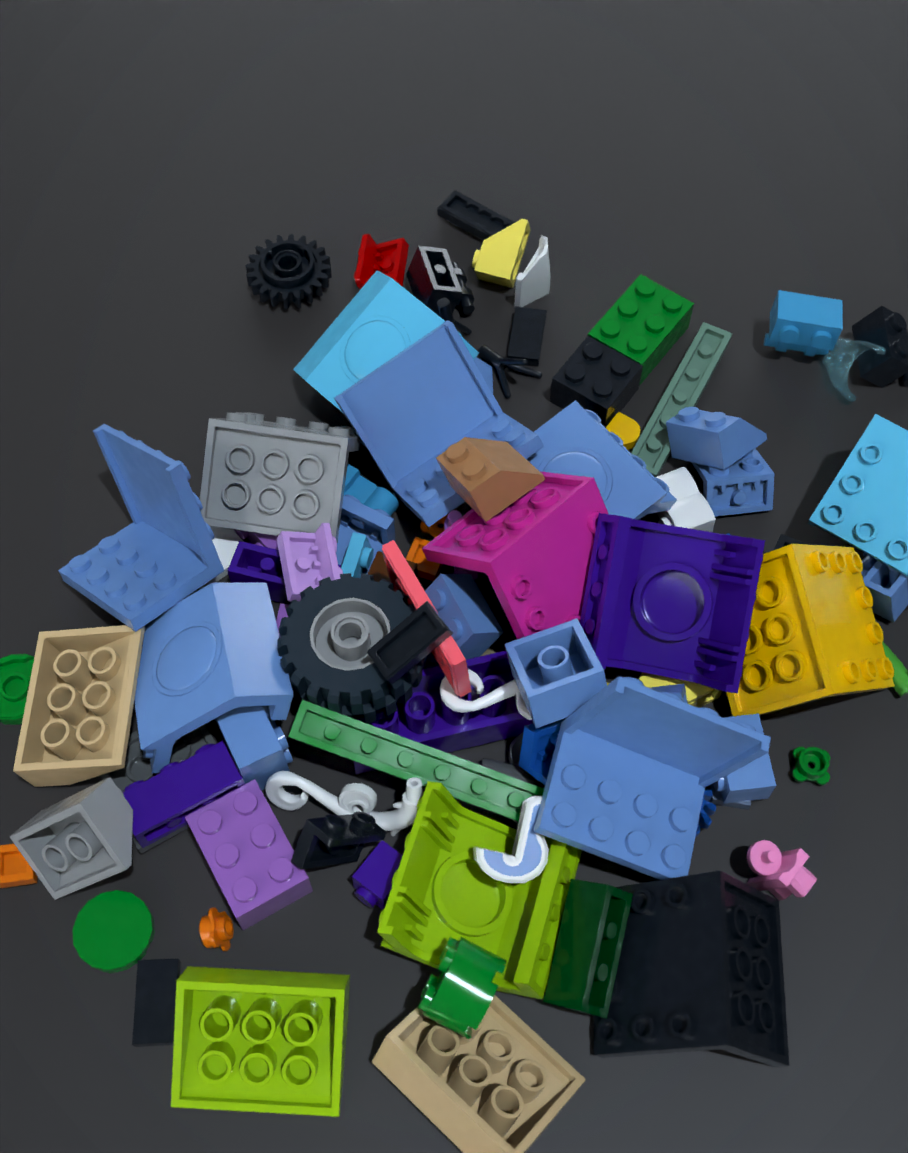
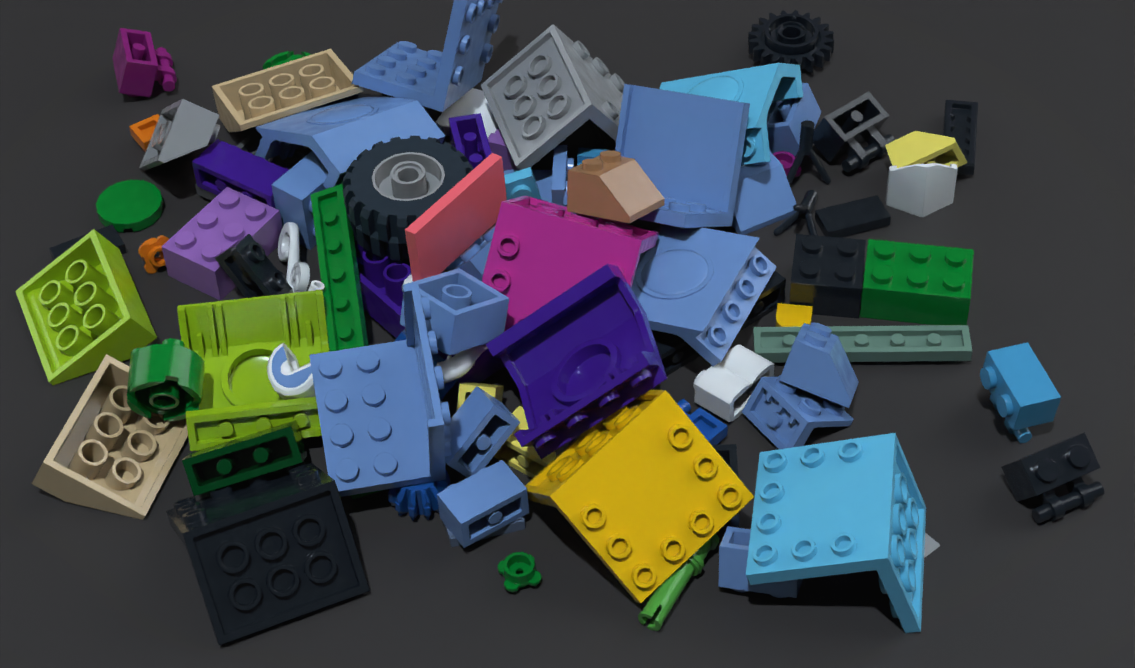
camera: 65 degrees right, 15 degrees down
(307, 559) = (483, 140): lavender bracket -> none
(385, 257) = (843, 86): red bracket -> none
(409, 642) = (411, 200): black tile -> none
(779, 871) = (386, 564): bright pink hips -> none
(840, 360) = (1003, 451): clear light blue helmet -> none

